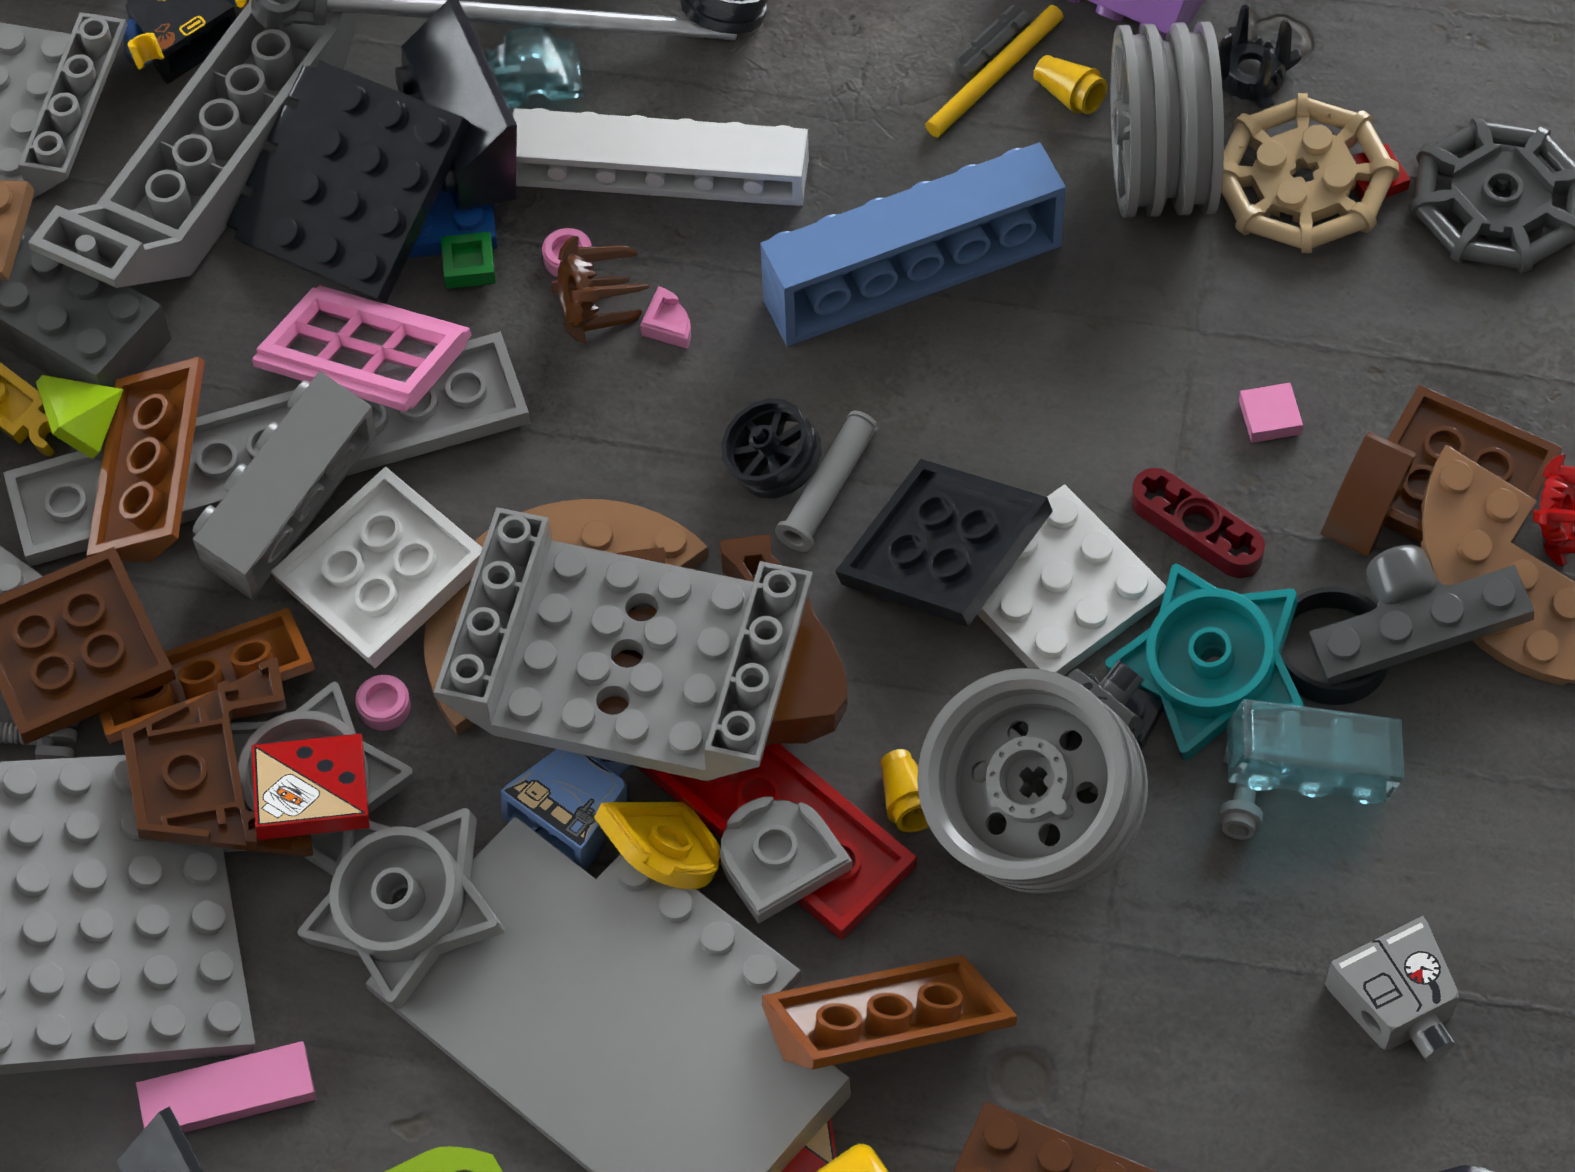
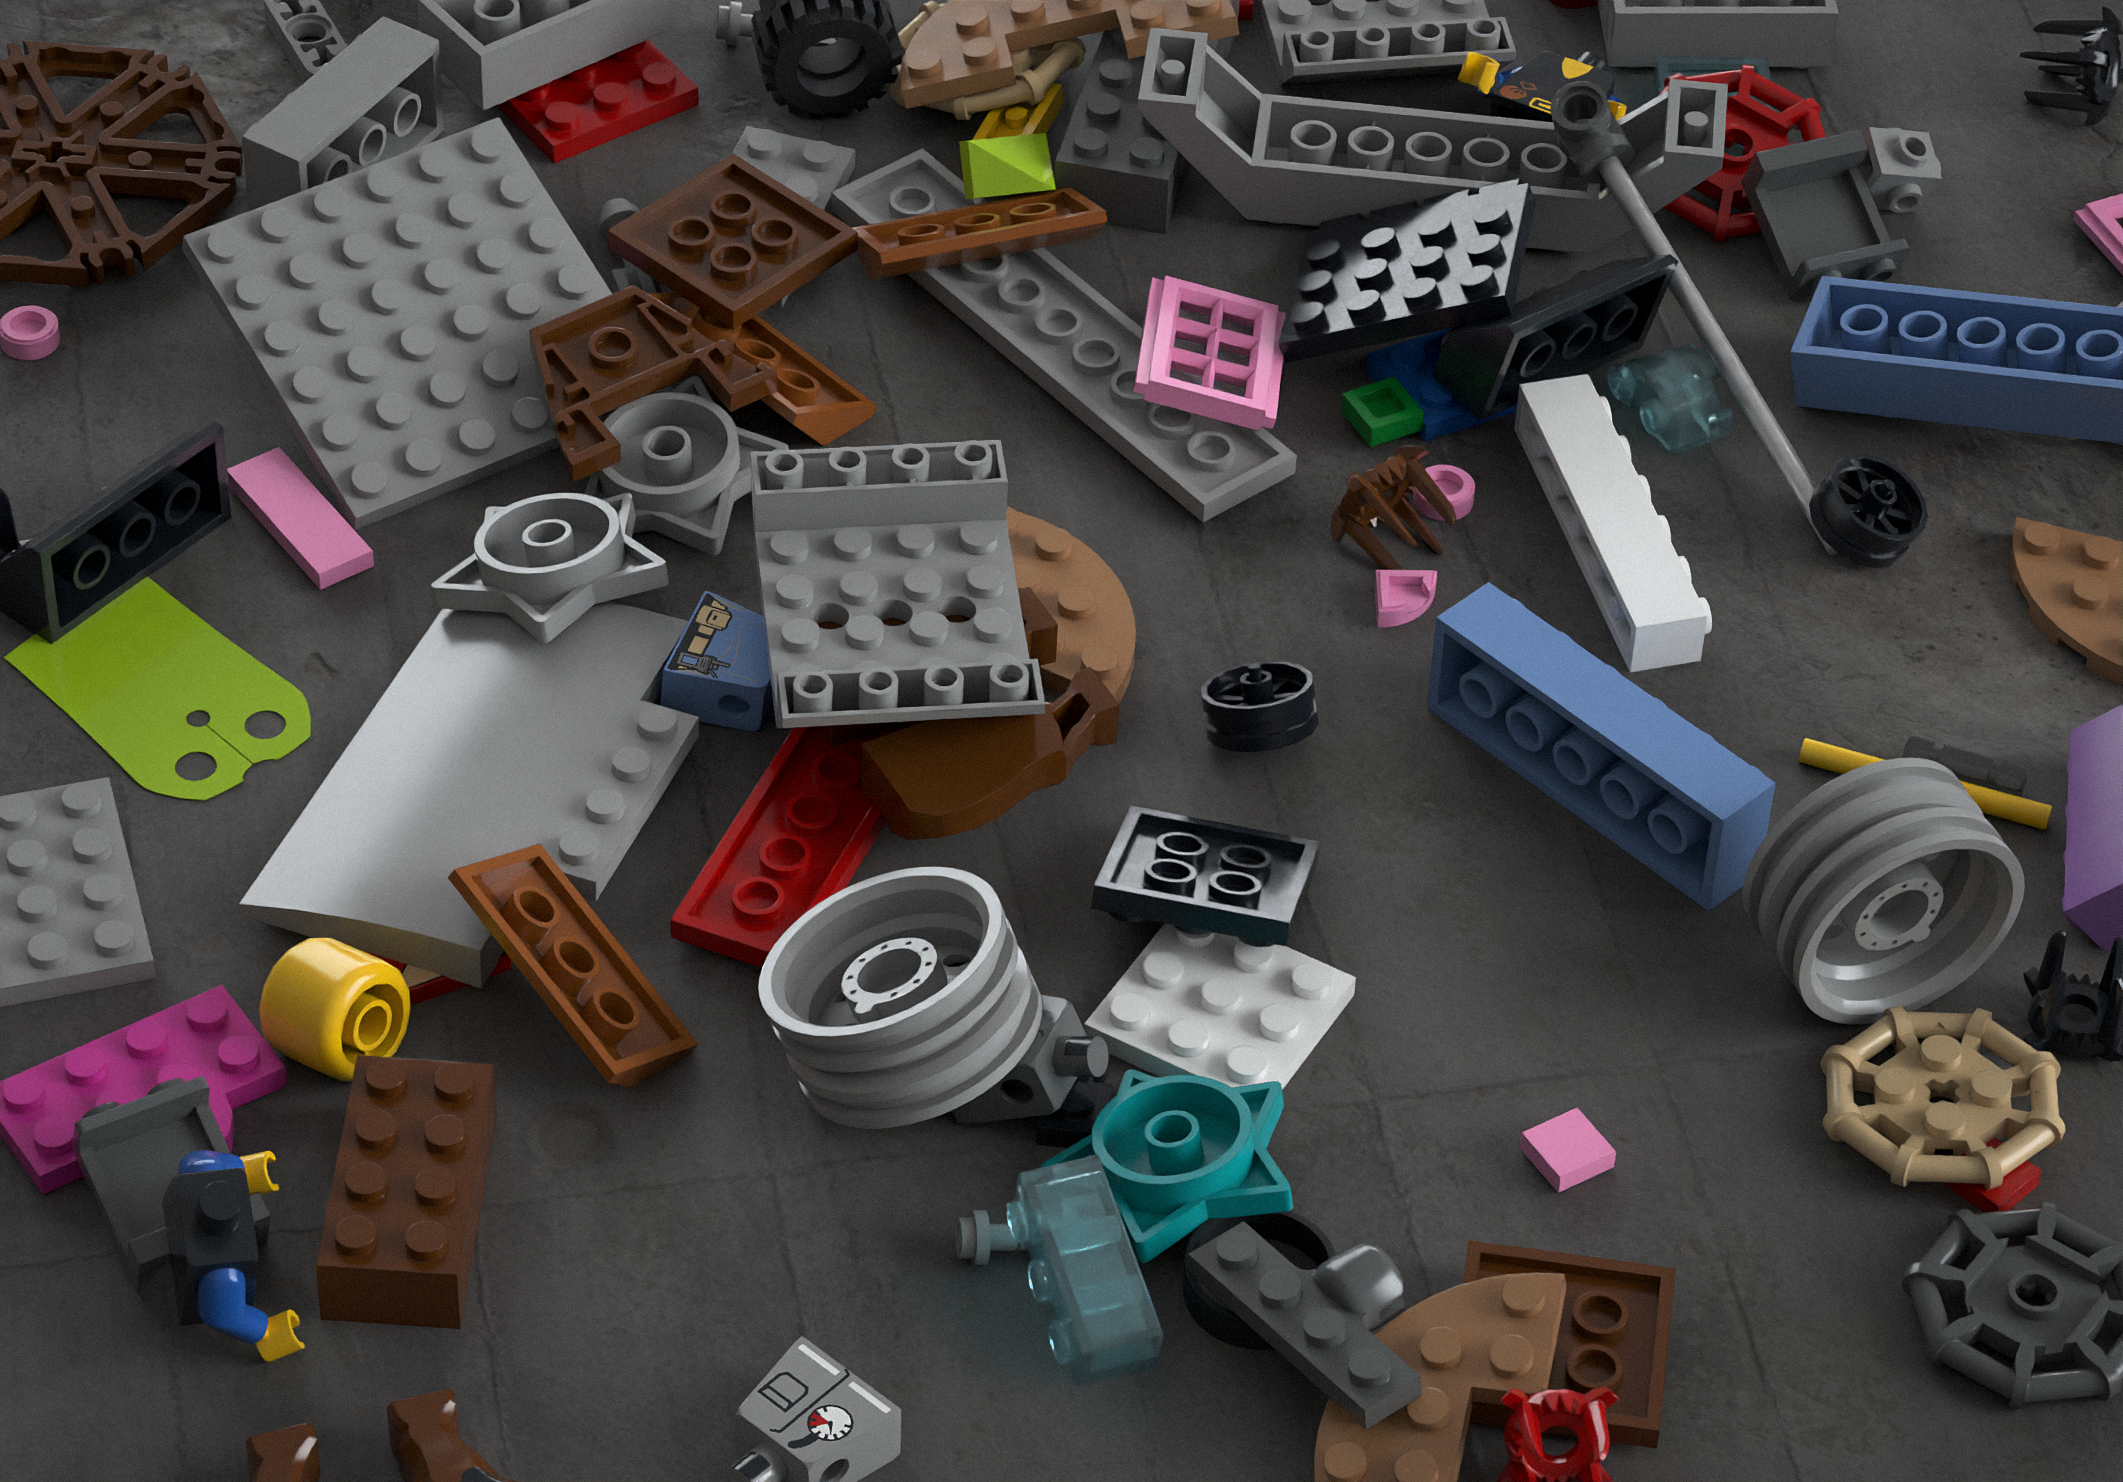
camera: 65 degrees right, 15 degrees down
(284, 484) = (986, 323): light grey brick -> none
(309, 786) = (635, 438): tile -> none
(379, 566) = (942, 411): white plate -> none
(662, 841) = (705, 739): yellow tile -> none
(779, 854) = (735, 839): light grey tile -> none
(826, 482) = (1253, 775): light grey pin -> none
(1201, 543) = (1378, 1138): dark red beam -> none
(1368, 493) = (1482, 1237): reddish brown slope -> none

